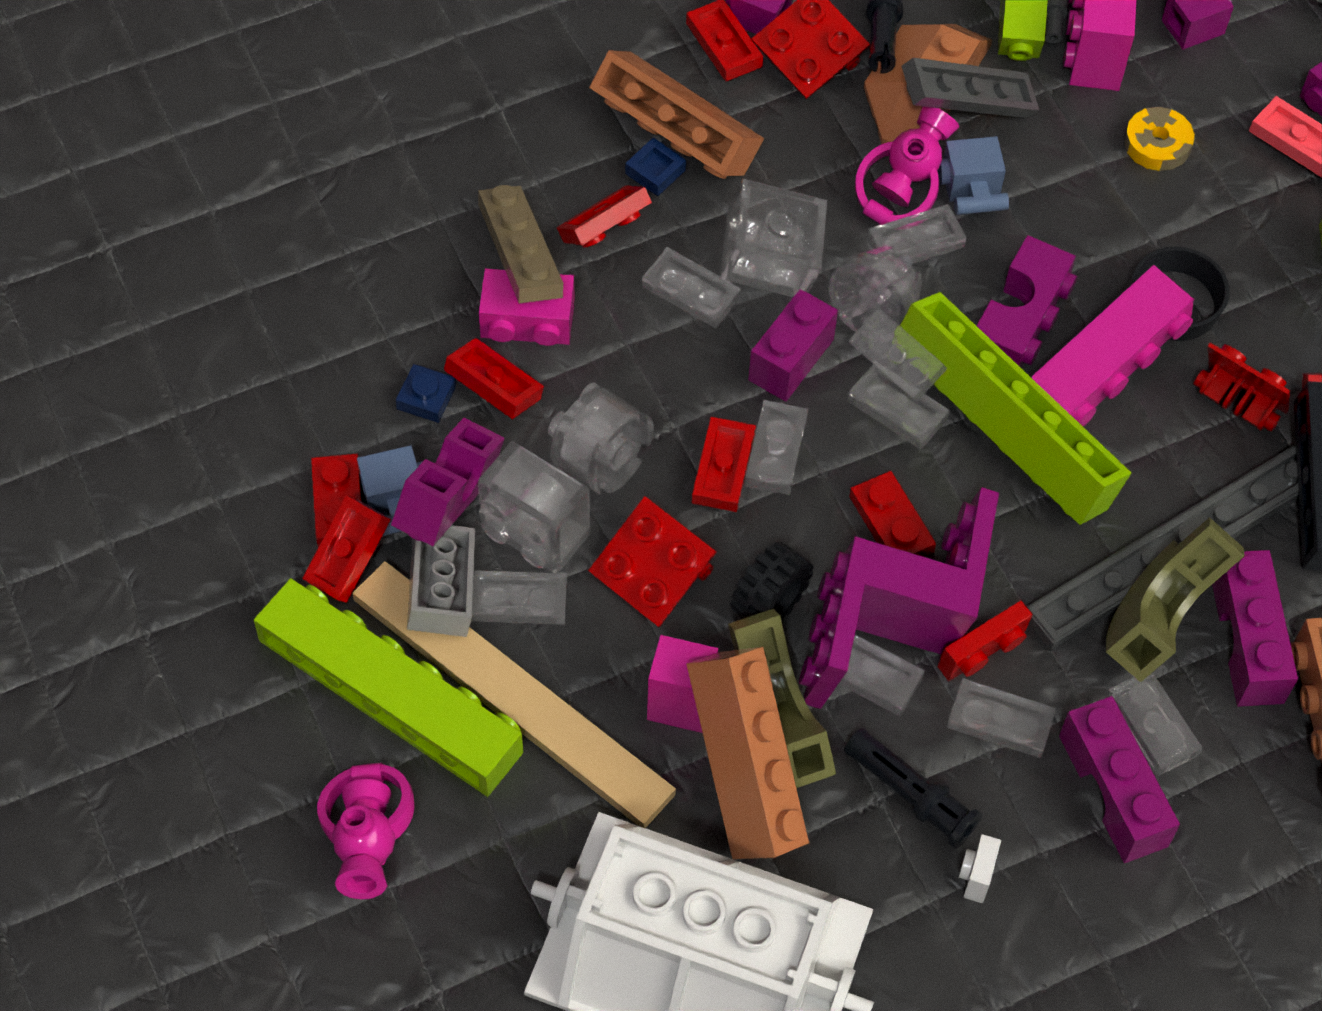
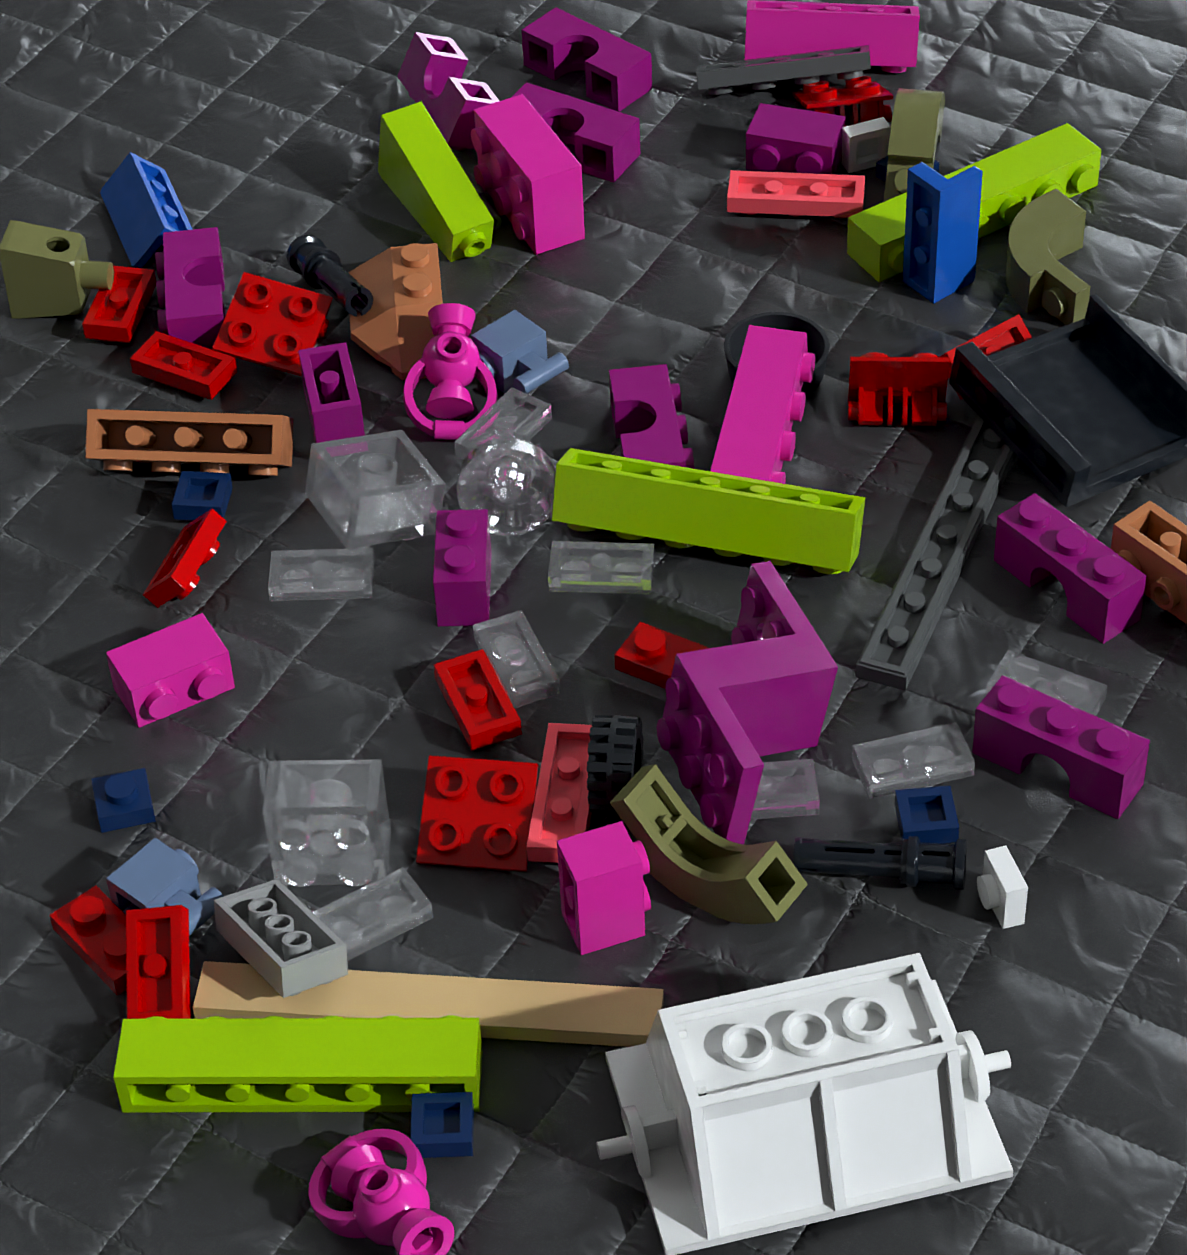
camera: 30 degrees left, 15 degrees down
(444, 489) = (224, 844): magenta arch -> none
(448, 794) = (443, 1124): none -> dark blue plate
(493, 378) = (186, 746): red plate -> none
(520, 244) = (124, 615): dark tan plate -> none
(599, 439) = (343, 721): clear brick -> none
(706, 602) = (561, 791): none -> coral plate
(747, 753) = (720, 891): nougat brick -> none
(803, 138) = (331, 393): none -> magenta brick
(897, 355) = (572, 519): clear plate -> none
(969, 88) = (460, 280): dark grey plate -> none
(972, 650) = (841, 719): red plate -> none
(974, 771) = (927, 814): none -> dark blue plate
(1152, 609) = (971, 572): olive arch -> none
(1155, 153) = (653, 254): yellow piece -> none

